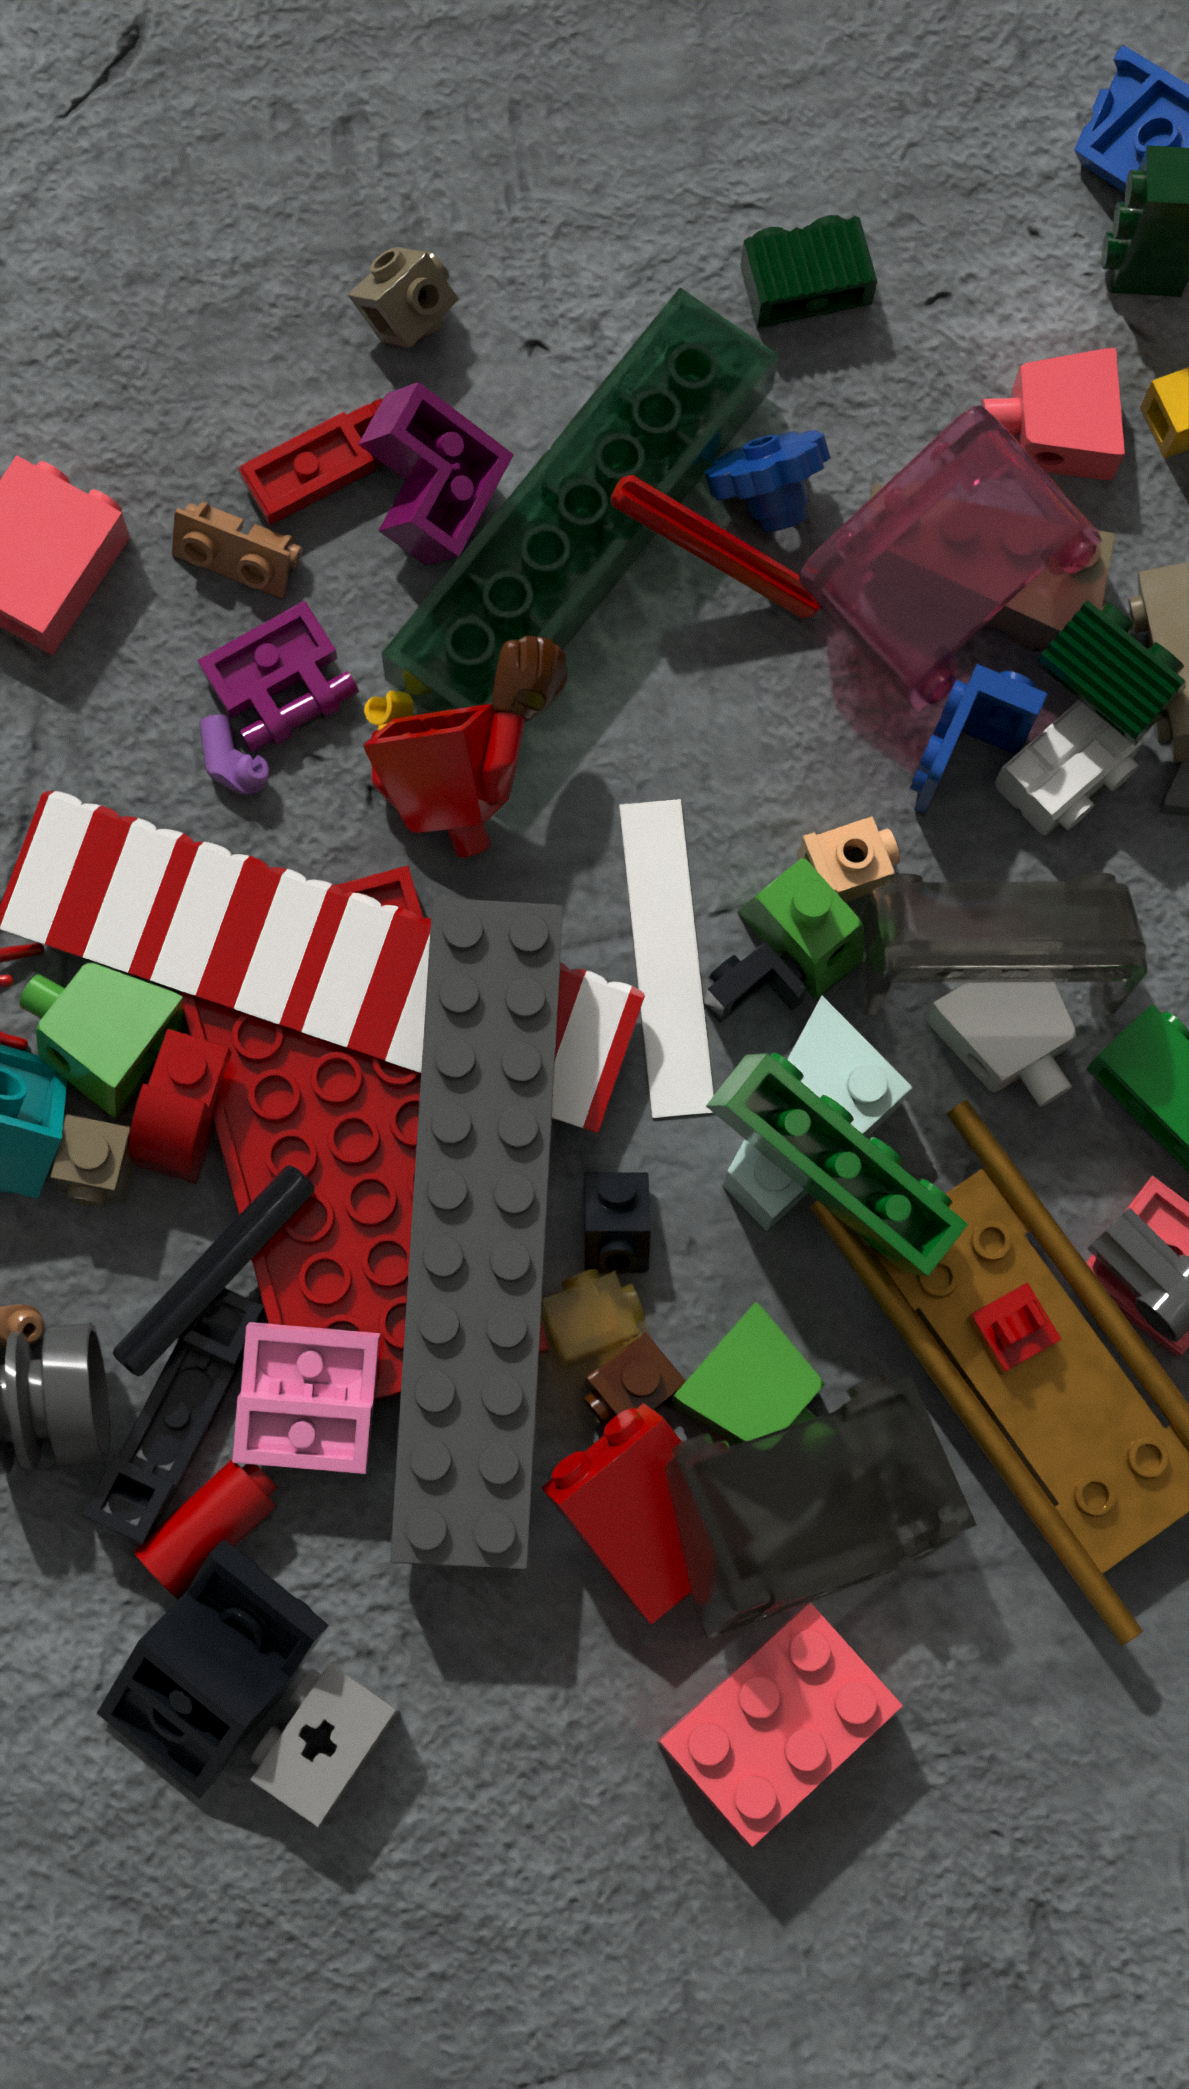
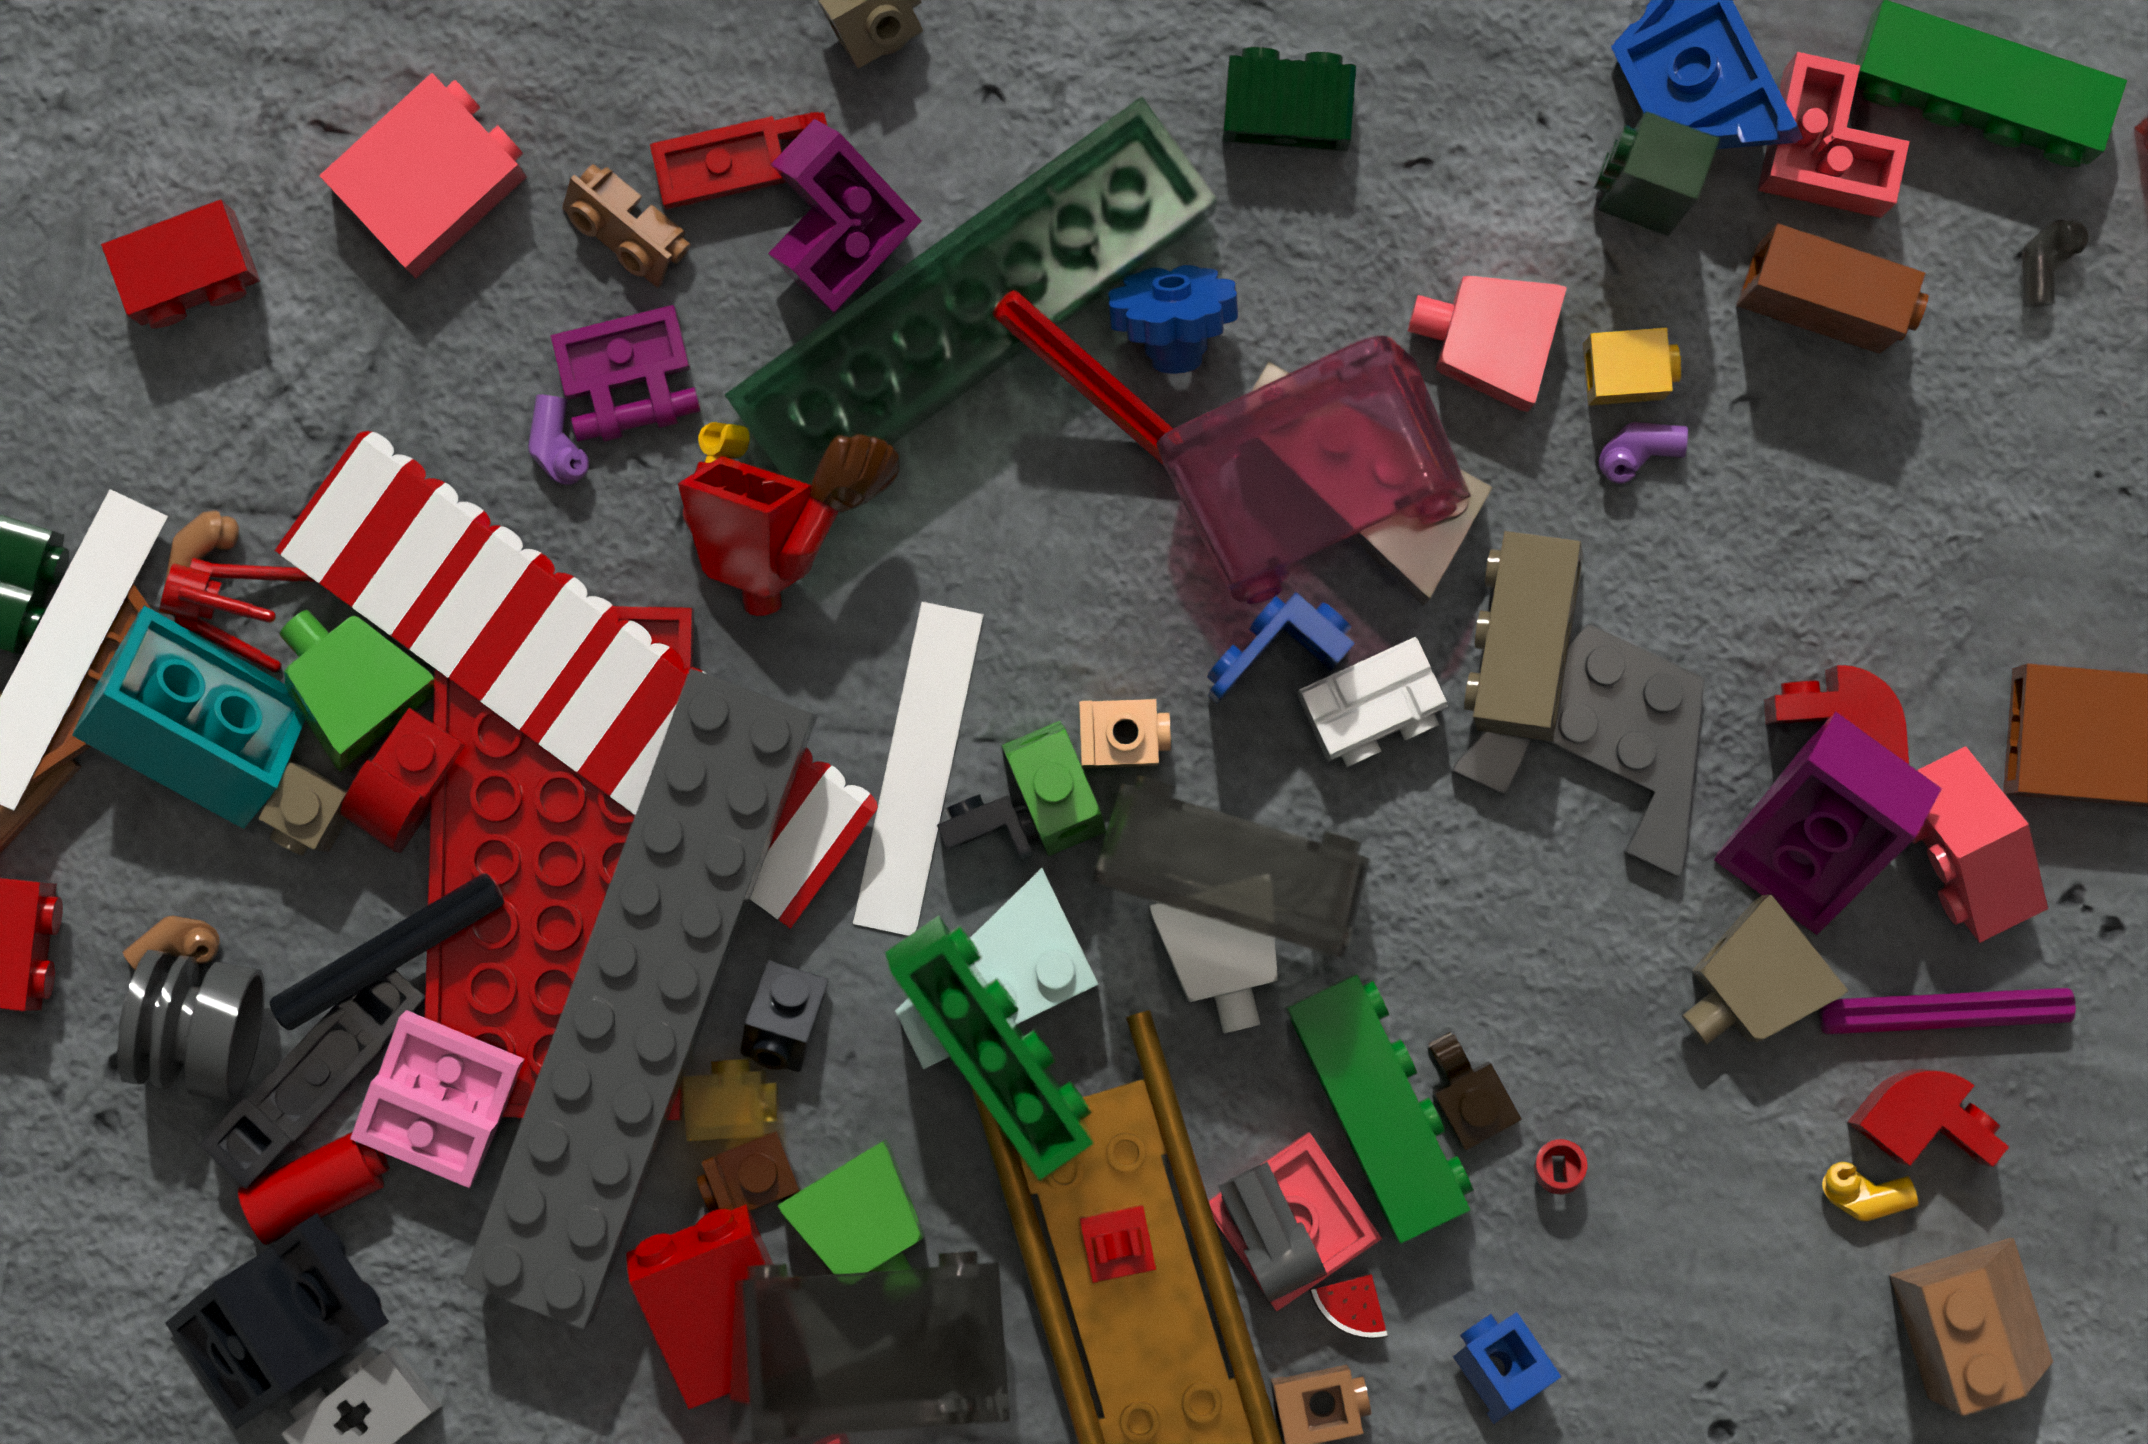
camera: 25 degrees right, 10 degrees up
(1113, 671) = (1432, 635): dark green brick -> none

